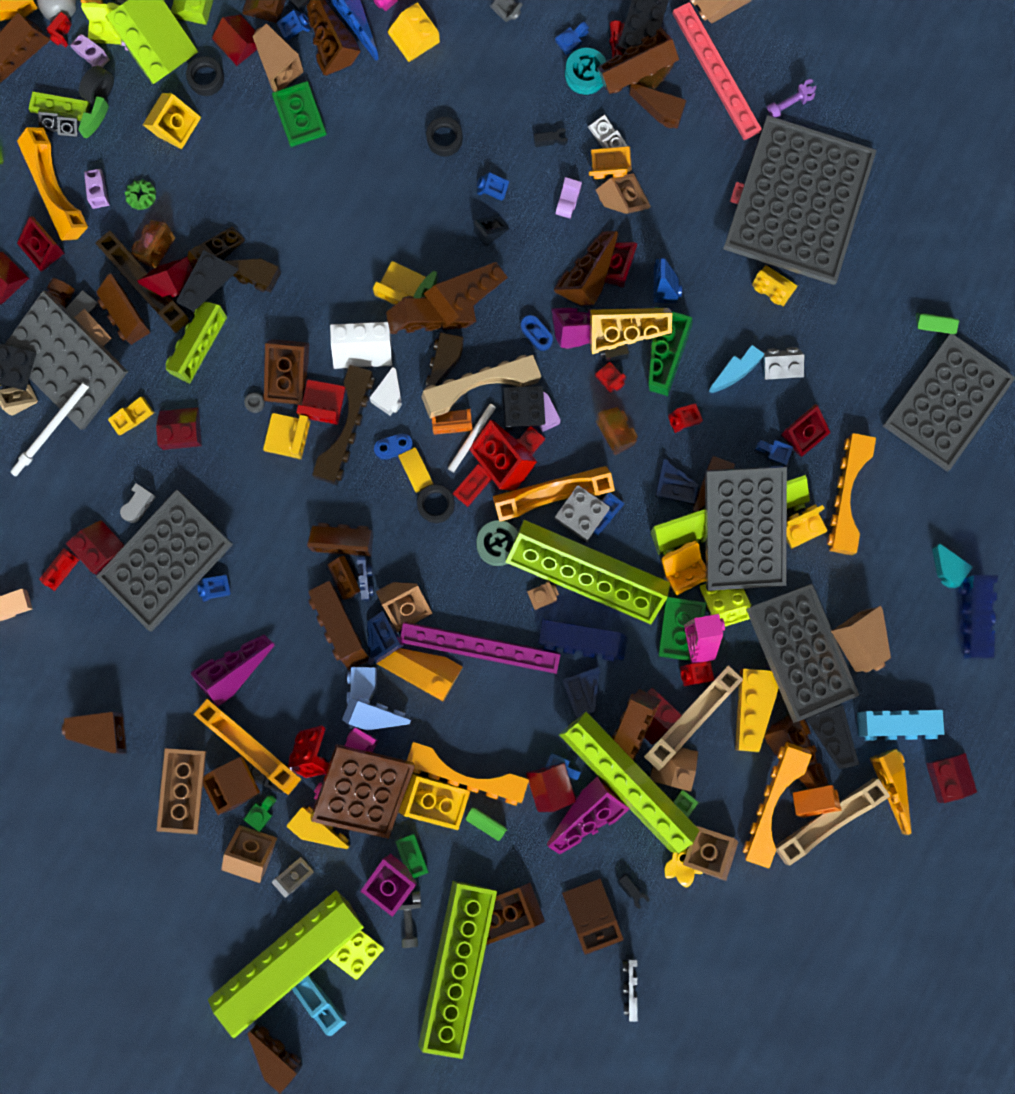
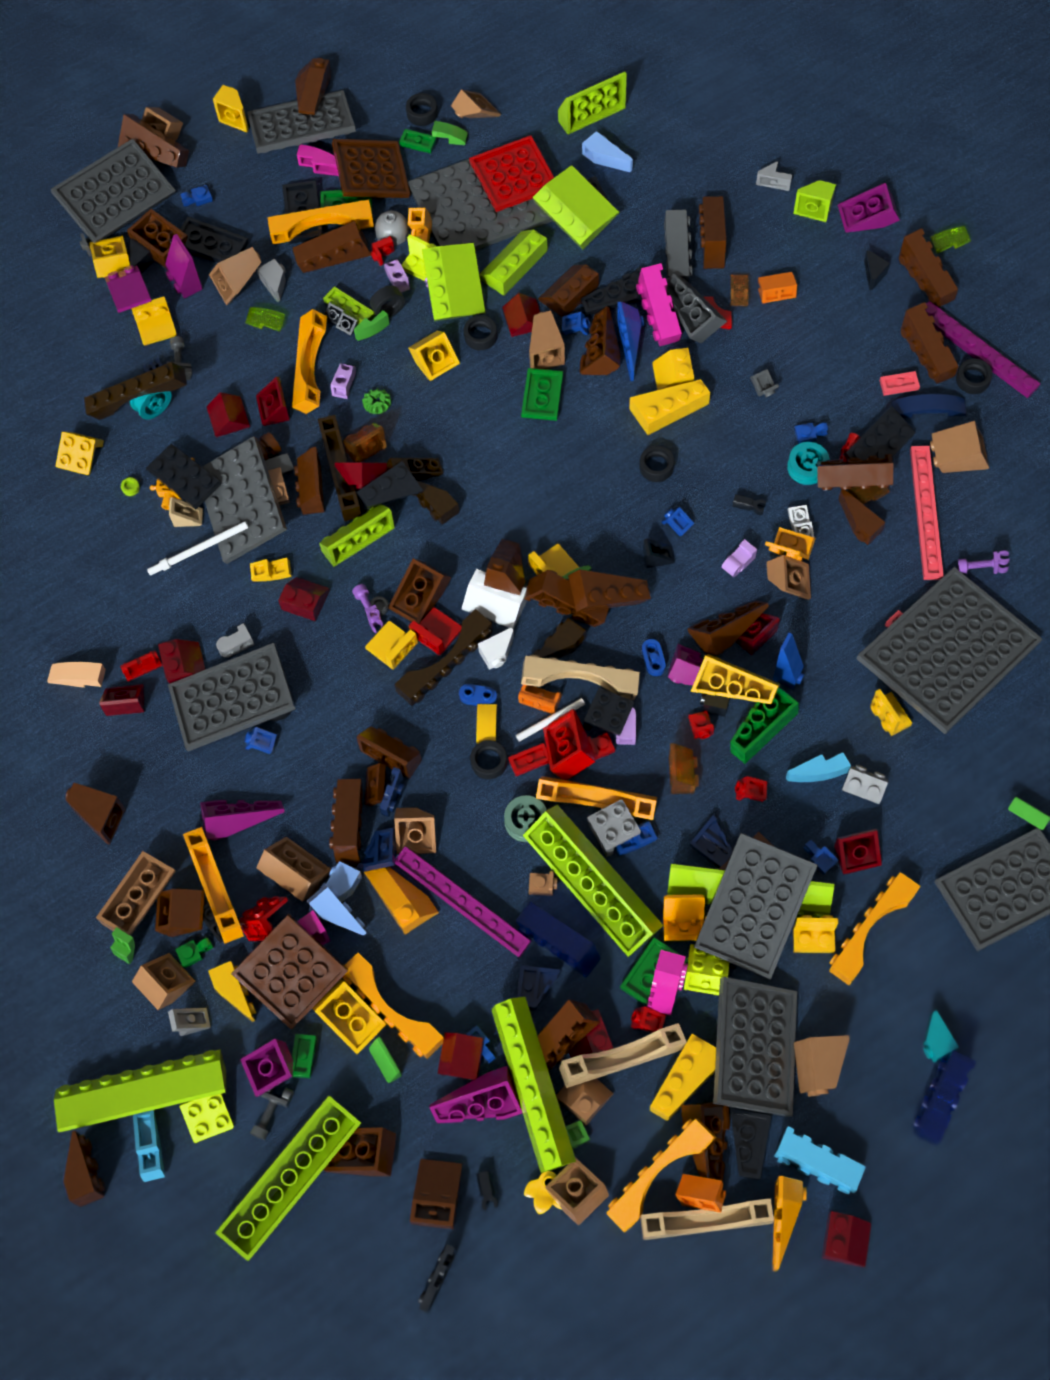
camera: 30 degrees right, 15 degrees down
(60, 610) = (123, 700): none -> dark red slope
(195, 842) = (123, 945): none -> bright green slope
(253, 414) = (372, 613): none -> medium lavender bar
(311, 692) = (293, 868): none -> medium nougat slope
(358, 311) = (506, 568): none -> reddish brown wedge
(426, 70) = (668, 405): none -> yellow wedge

